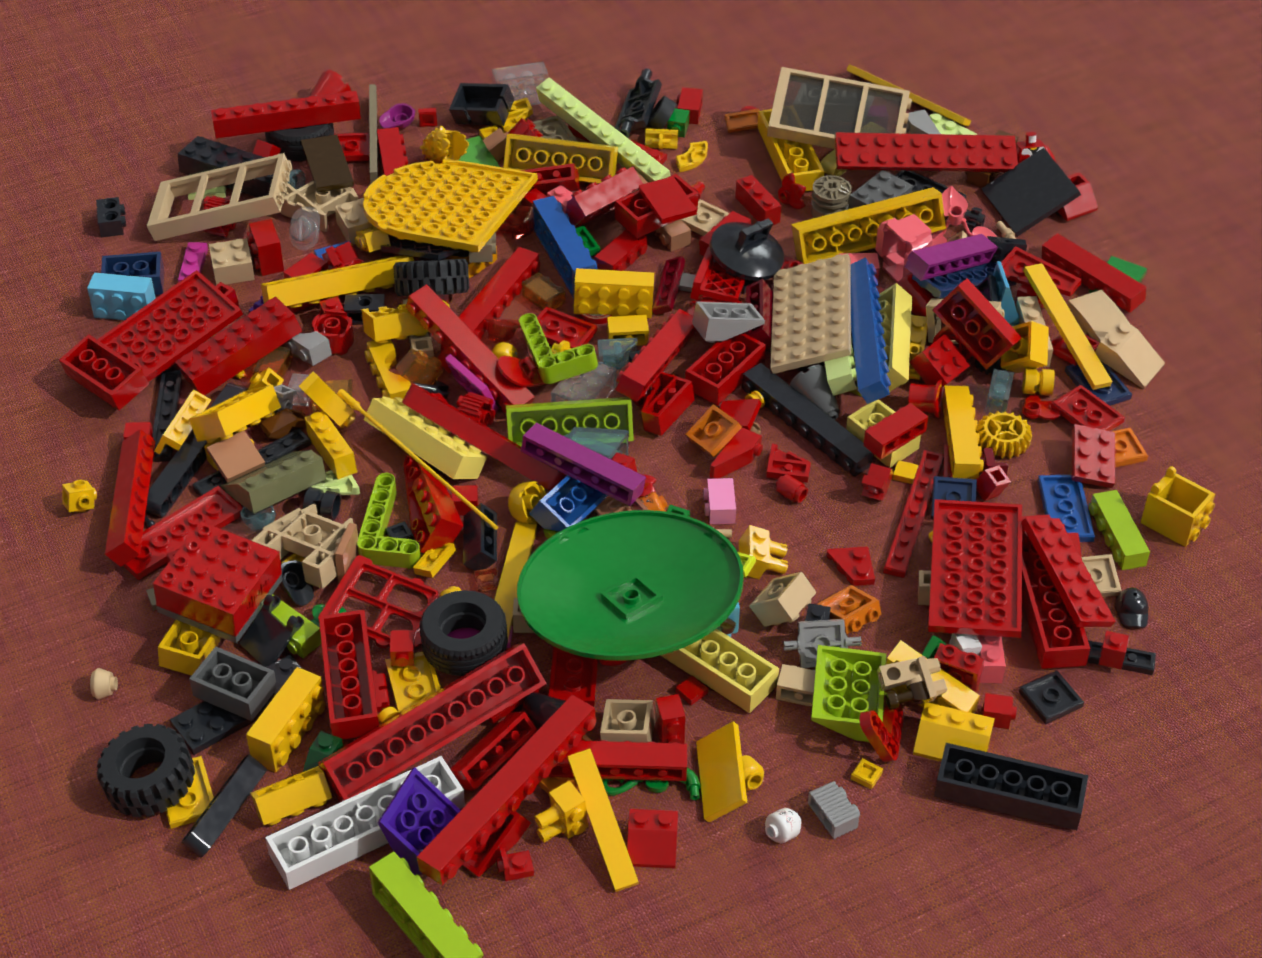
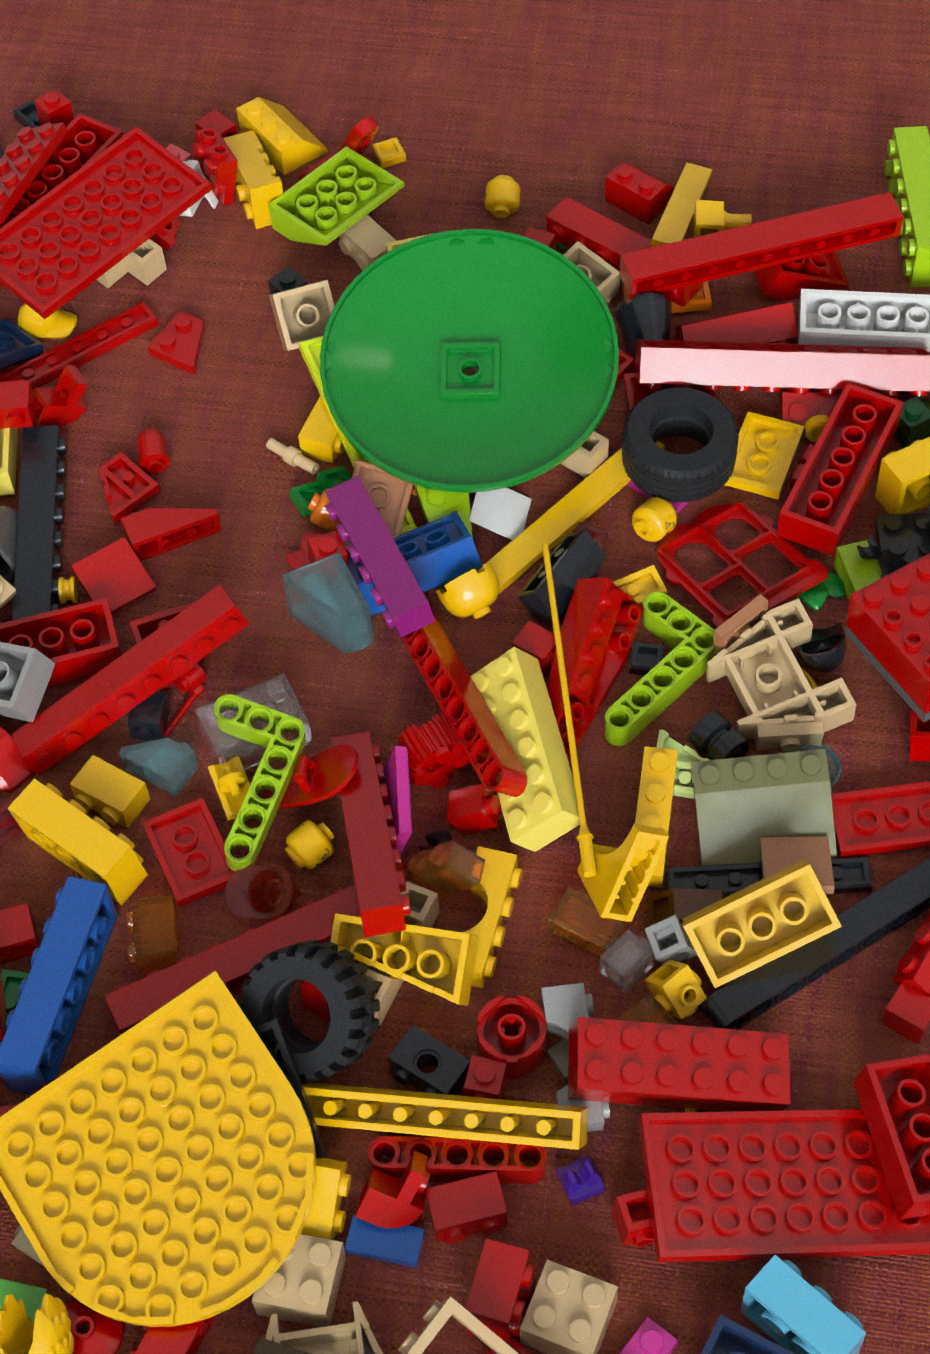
camera: 140 degrees left, 10 degrees up
(166, 410) = (847, 1040): black tile -> none
(180, 426) = (836, 976): yellow fence -> none
(305, 228) = (399, 1310): clear piece -> none
(402, 648) = (756, 476): red brick -> none
(415, 817) = (874, 272): dark purple slope -> none
(565, 415) = (329, 664): lime brick -> none
(713, 430) = (168, 555): orange plate -> none
(721, 501) = (244, 479): bright pink brick -> none
(721, 772) = (528, 196): yellow tile -> none
(757, 543) = (270, 392): yellow brick -> none
(783, 825) = (513, 139): white head -> none
(819, 633) = (310, 262): light grey plate -> none
(834, 809) = (453, 131): light grey brick -> none
(854, 607) = (241, 289): orange plate -> none
(916, 676) = (281, 149): tan hips -> none
(932, 647) = (222, 184): green tile -> none
(1011, 786) = (284, 65): black brick -> none
(1051, 697) = (157, 123): black tile -> none

